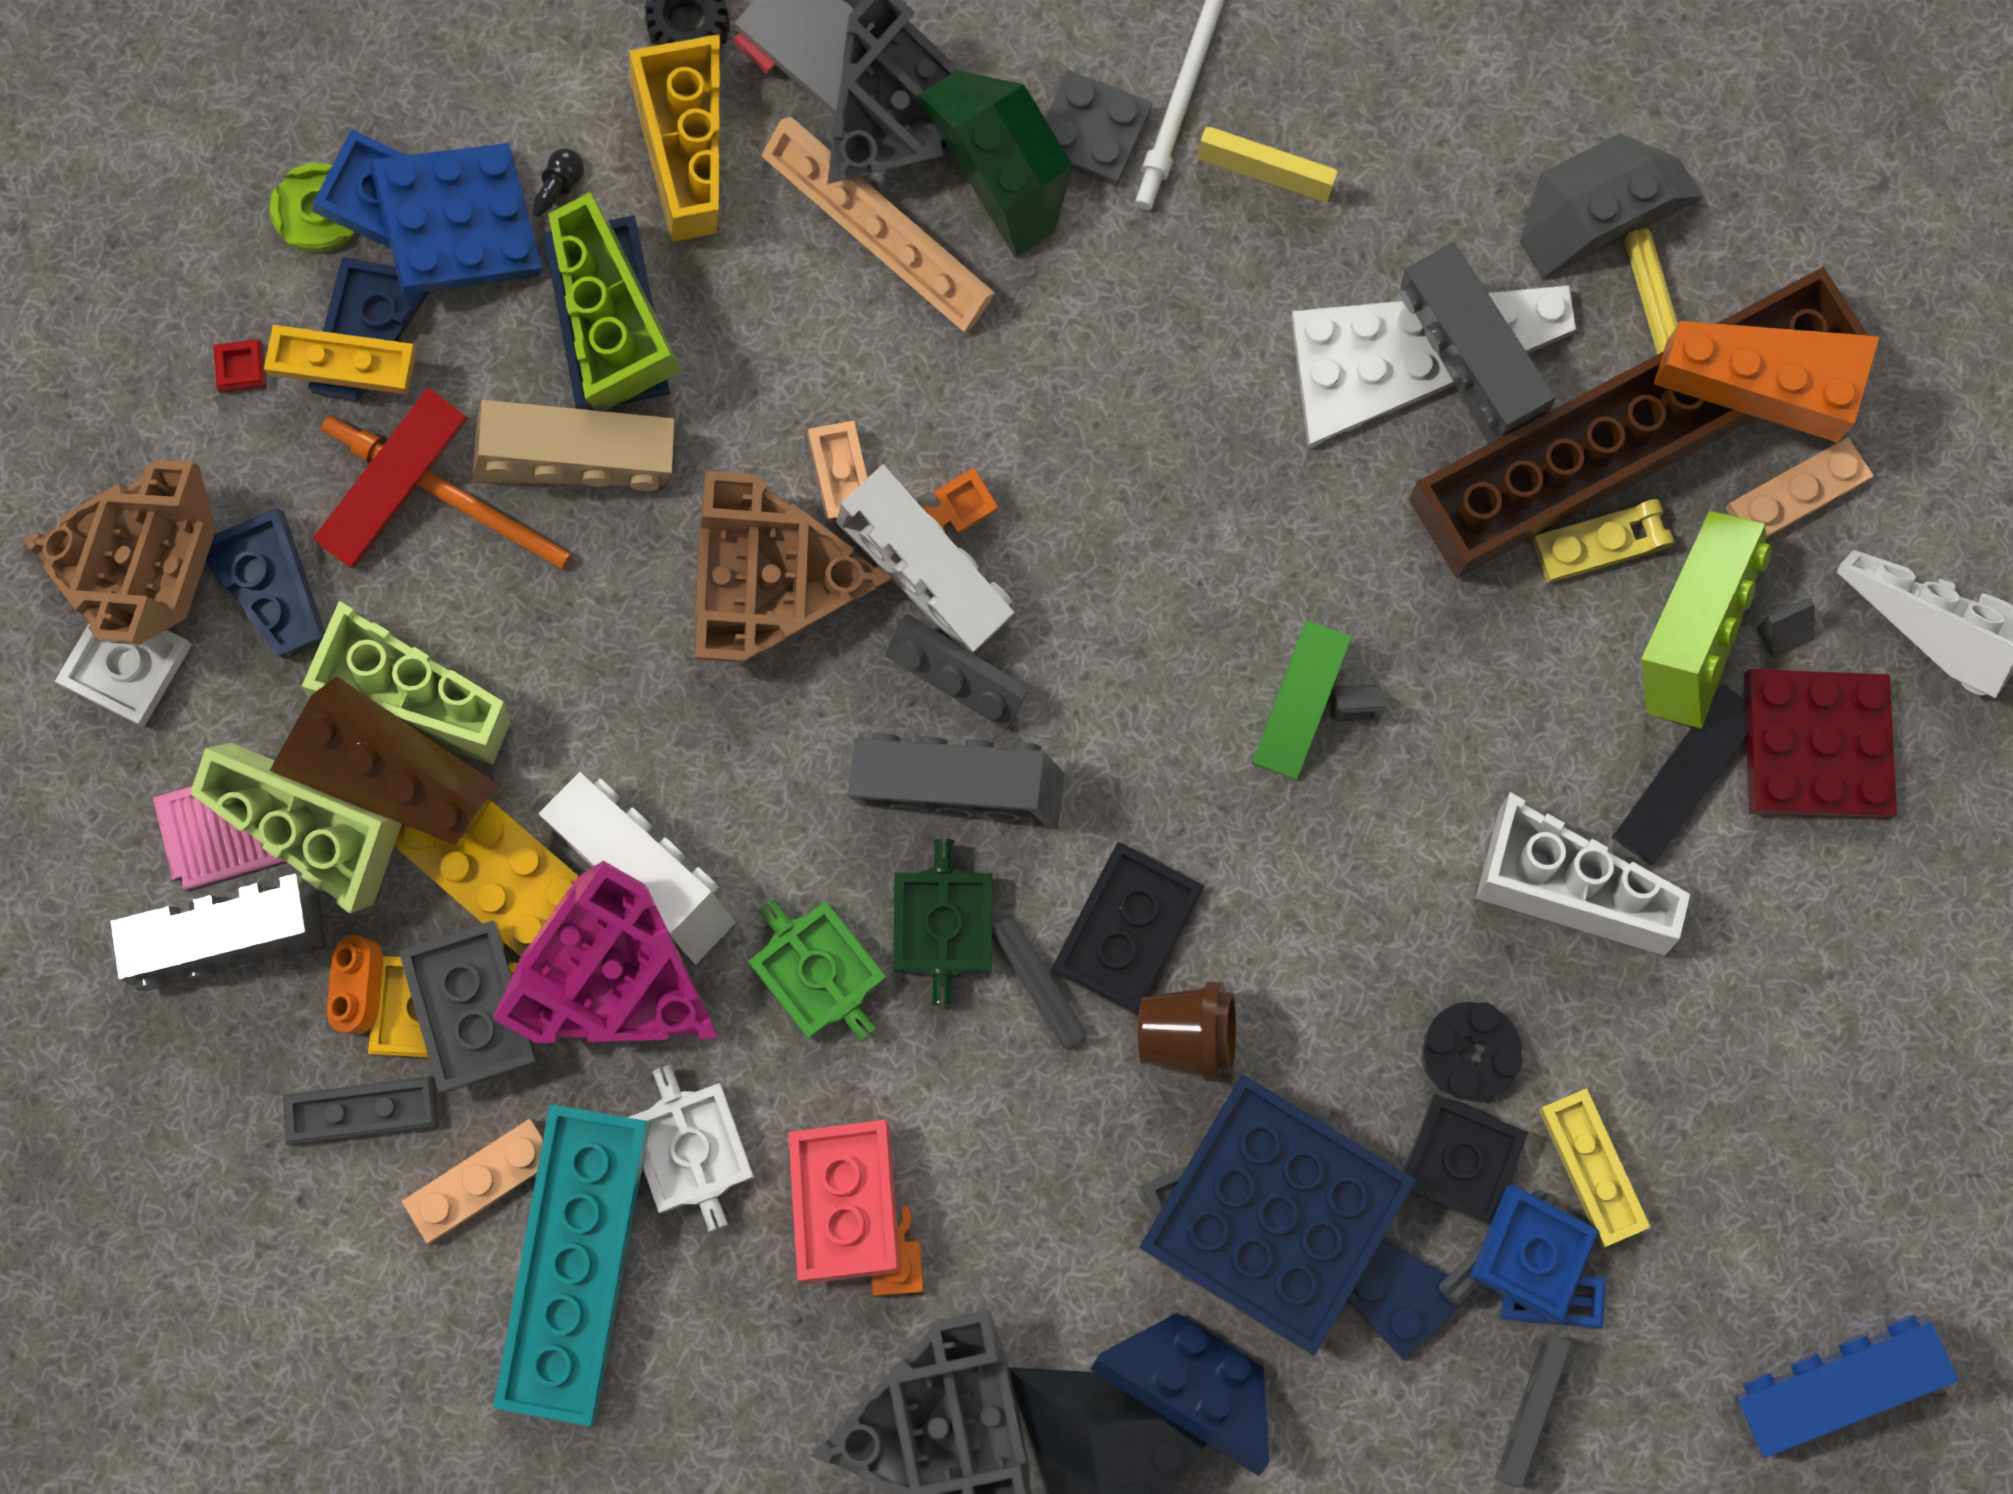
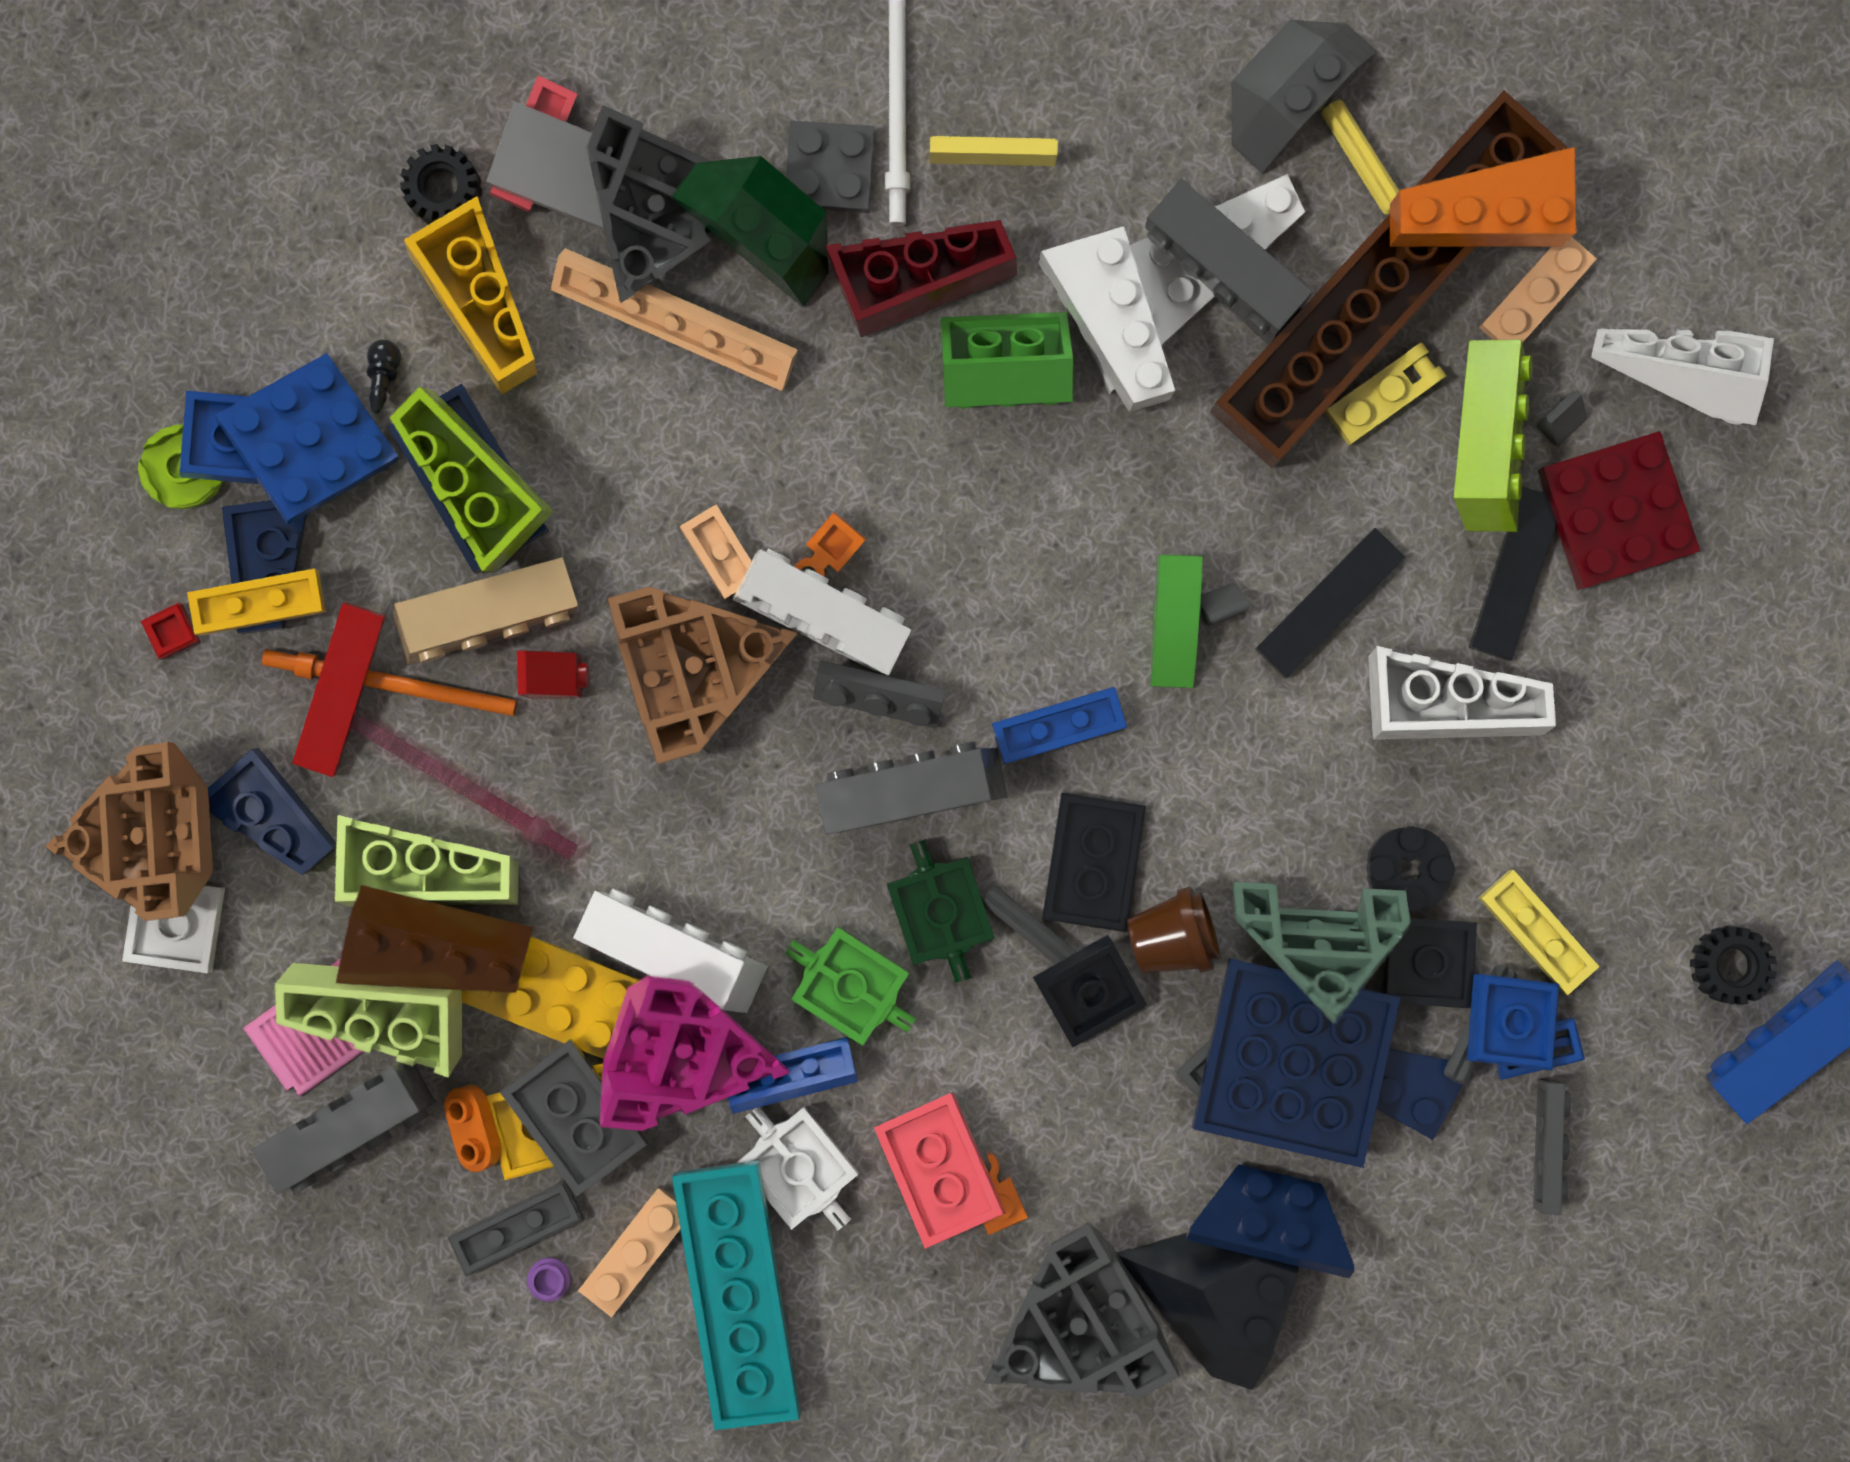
camera: 20 degrees left, 10 degrees up
(374, 1179) = (548, 1279): none -> medium lavender plate
(540, 691) = (534, 829): none -> clear pink bar
(616, 534) = (551, 675): none -> red slope
(739, 1047) = (810, 1072): none -> blue plate
(1076, 1061) = (1090, 991): none -> black plate
(1139, 769) = (1059, 725): none -> blue plate
(1150, 257) = (919, 271): none -> dark red wedge
(1209, 376) = (1007, 359): none -> bright green slope
(1336, 350) = (1108, 303): none -> white wedge
(1345, 1098) = (1324, 949): none -> sand green wedge
(1474, 738) = (1330, 603): none -> black tile
(1831, 1278) = (1757, 959): none -> black tyre

